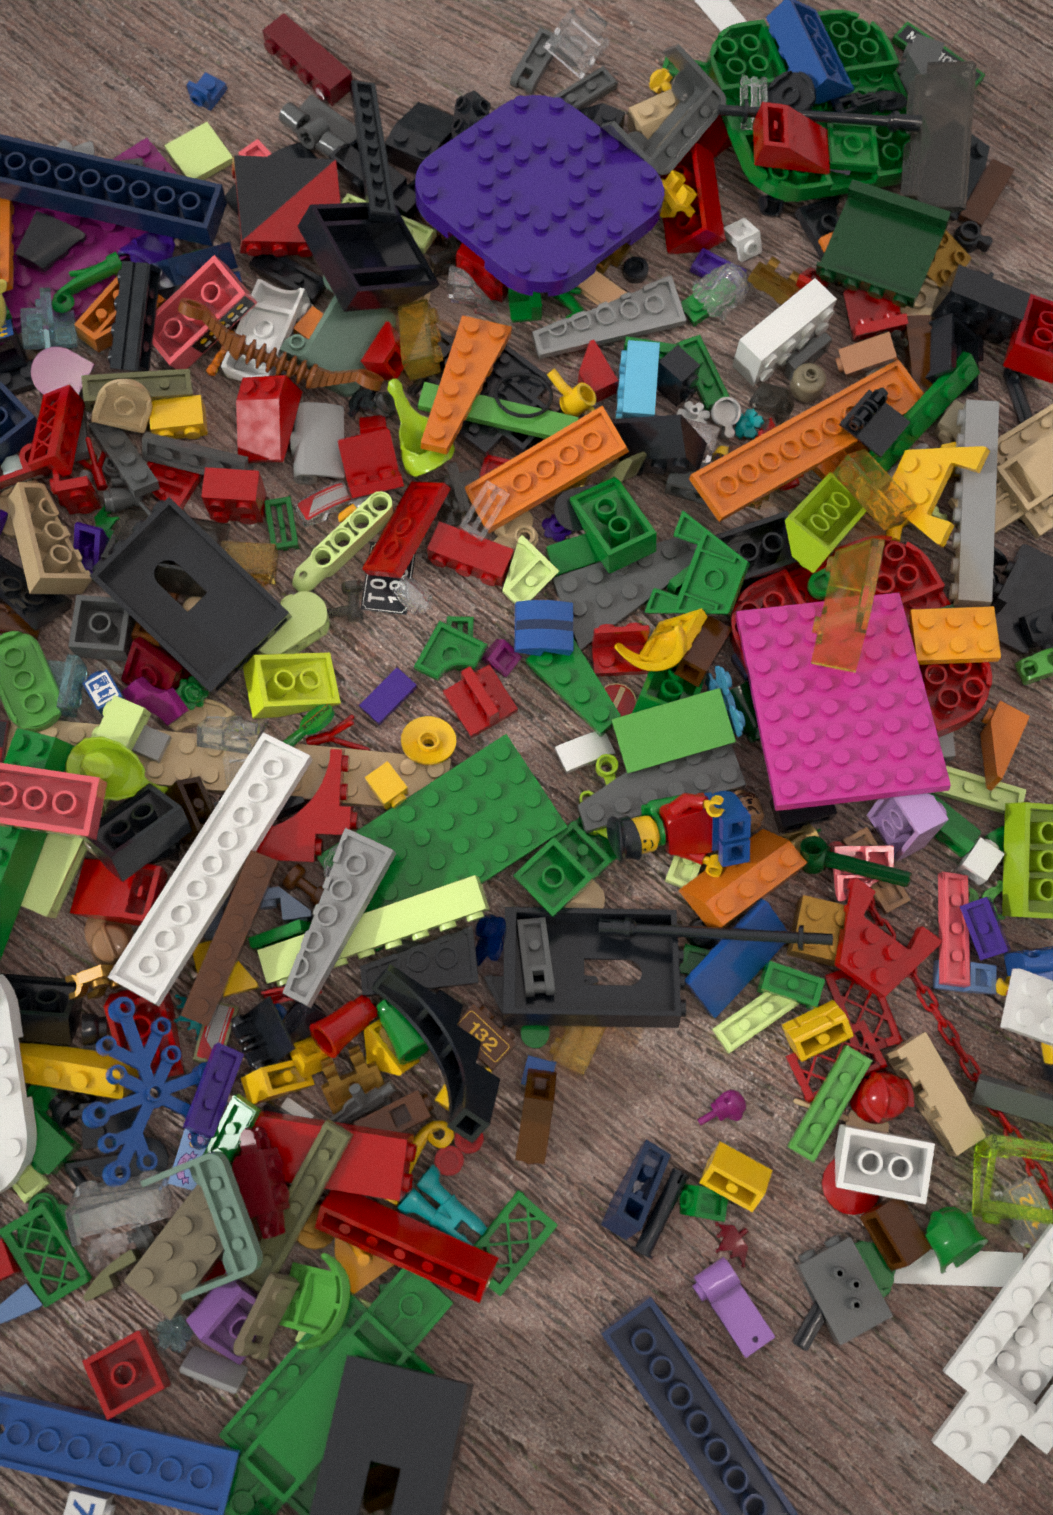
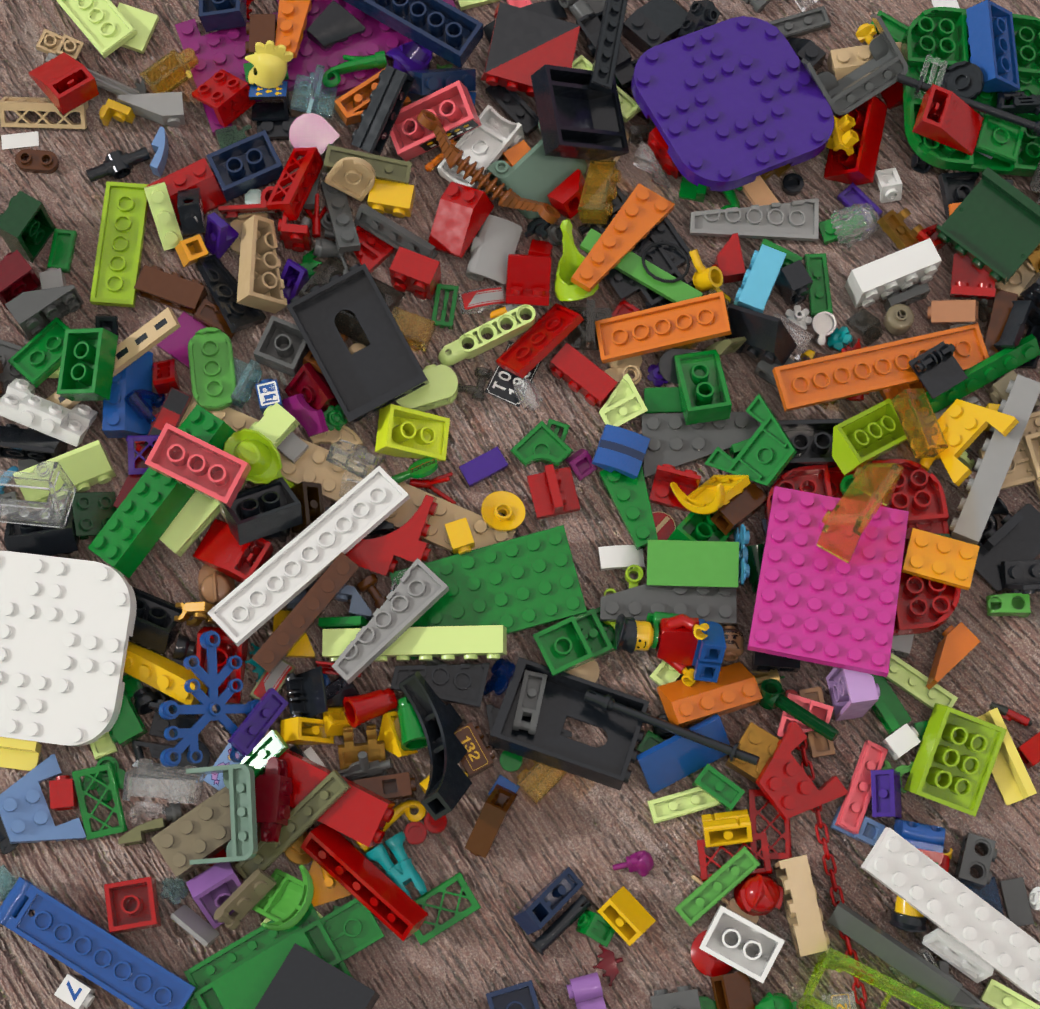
camera: 20 degrees right, 0 degrees up
(472, 530) = (589, 358): clear tile -> none

